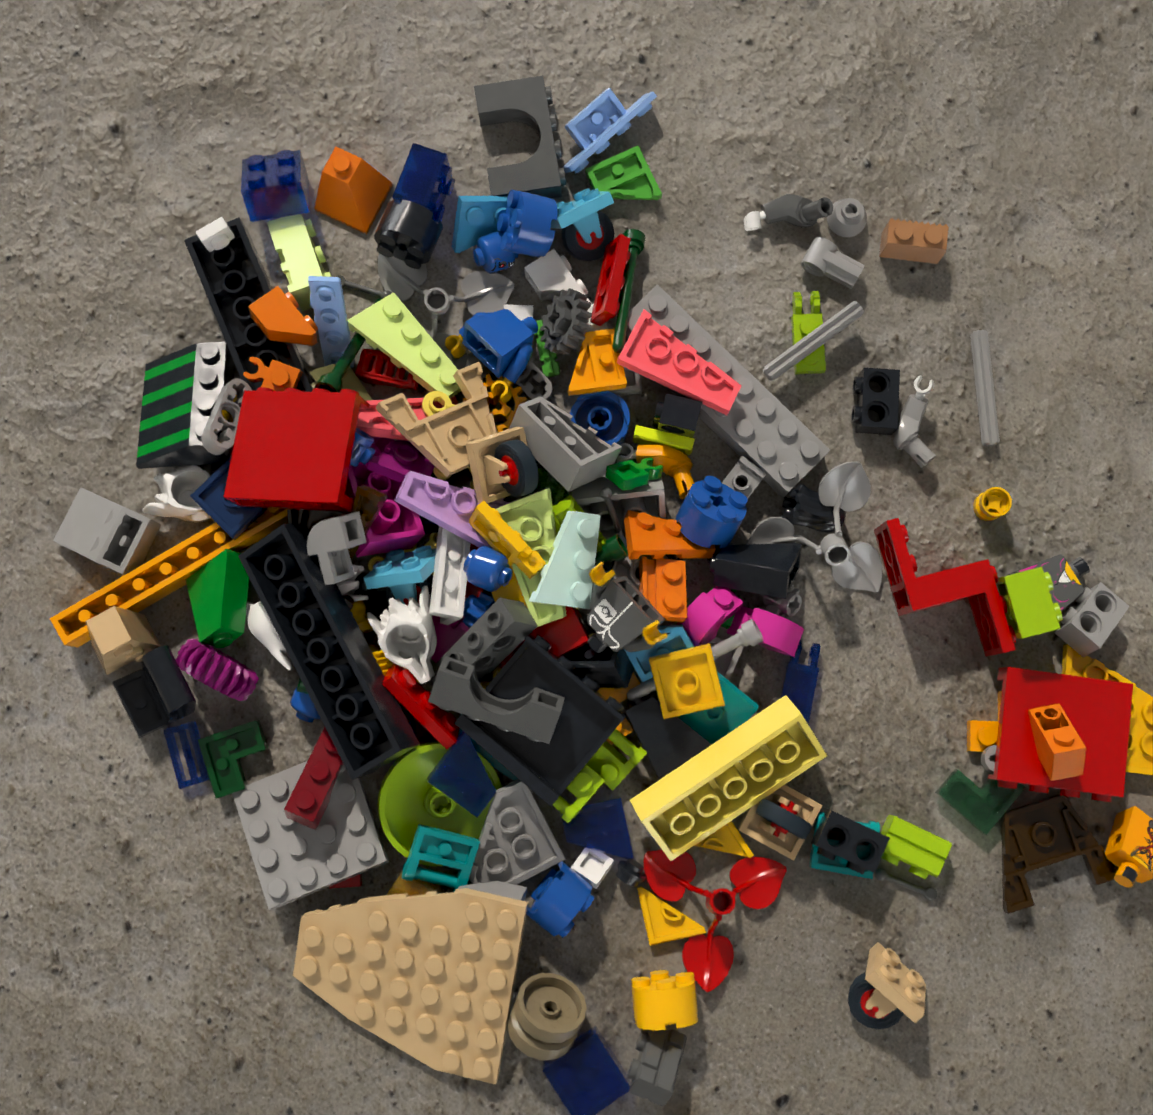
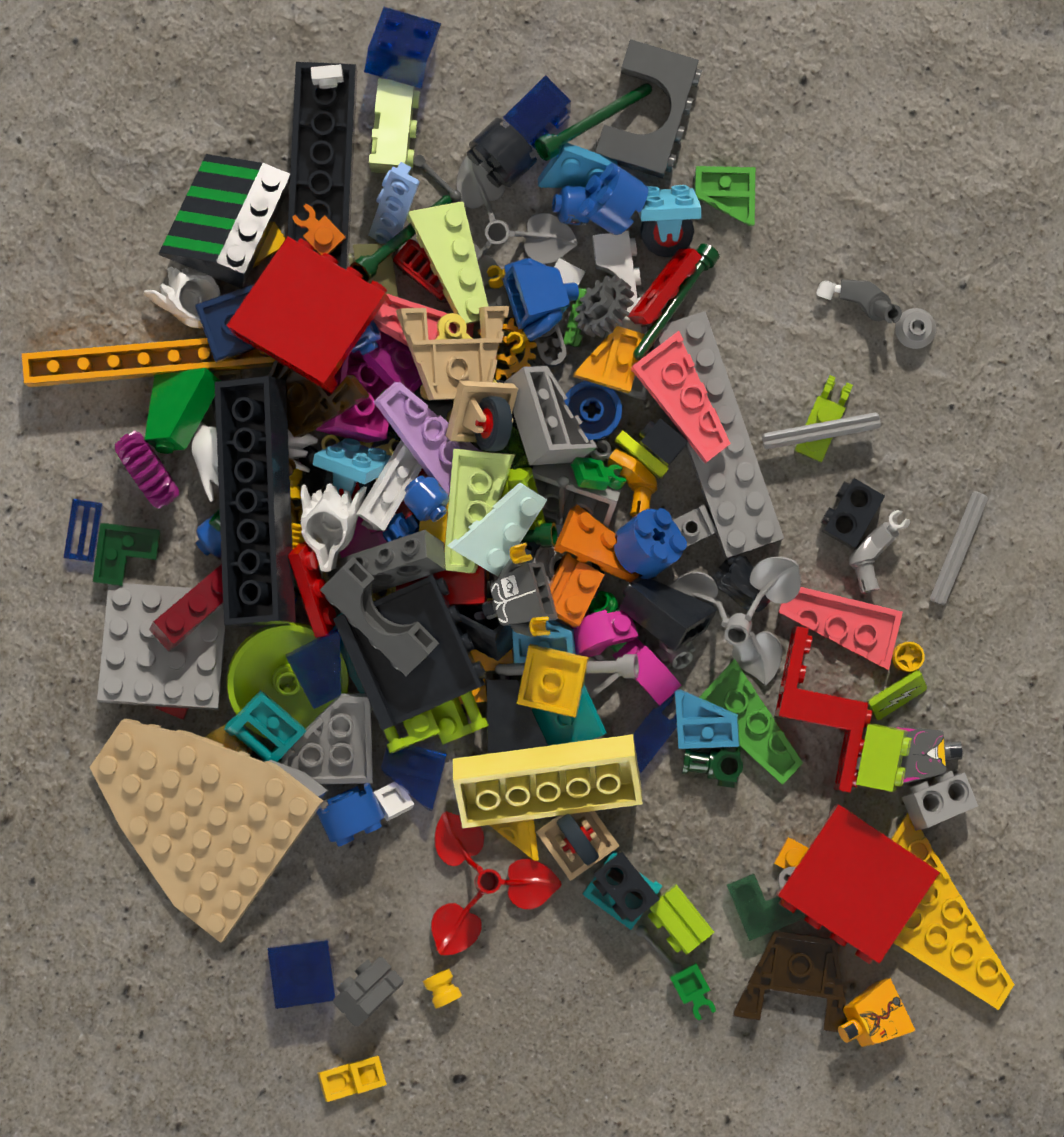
camera: 20 degrees right, 5 degrees up
(107, 532) = (101, 295): light grey slope -> none
(120, 637) = (72, 401): tan wedge -> none
(155, 693) = (83, 463): black piece -> none
(217, 422) = (250, 256): light grey beam -> none
(280, 319) = (349, 183): orange slope -> none
(331, 542) = (302, 412): light grey brick -> none
(351, 190) = (470, 82): orange slope -> none
(447, 201) = (549, 145): none -> dark green piece
(505, 540) = (455, 485): yellow hinge -> none
(546, 1016) = (292, 905): dark tan wheel -> none
(599, 122) = (730, 129): light blue bracket -> none
(630, 872) = (424, 822): black plate -> none
(664, 921) = (432, 878): yellow tile -> none
(664, 1000) = (399, 941): yellow brick -> none
(694, 585) = (602, 602): none -> green plate
(725, 1023) = (442, 988): none -> yellow wheel
(826, 260) = (874, 359): light grey piece -> none
(844, 653) = (704, 723): none -> dark azure wing
(868, 686) = (713, 764): none -> dark green connector
(872, 630) = (757, 728): none -> bright green wing
(886, 991) = (593, 1028): tan plate -> none
(914, 241) = (962, 382): medium nougat brick -> none
(926, 499) = (850, 623): none -> coral wing
(955, 905) = (691, 987): none -> green plate
(1000, 539) = (897, 694): none -> lime slope
(1057, 742) = (843, 887): orange slope -> none

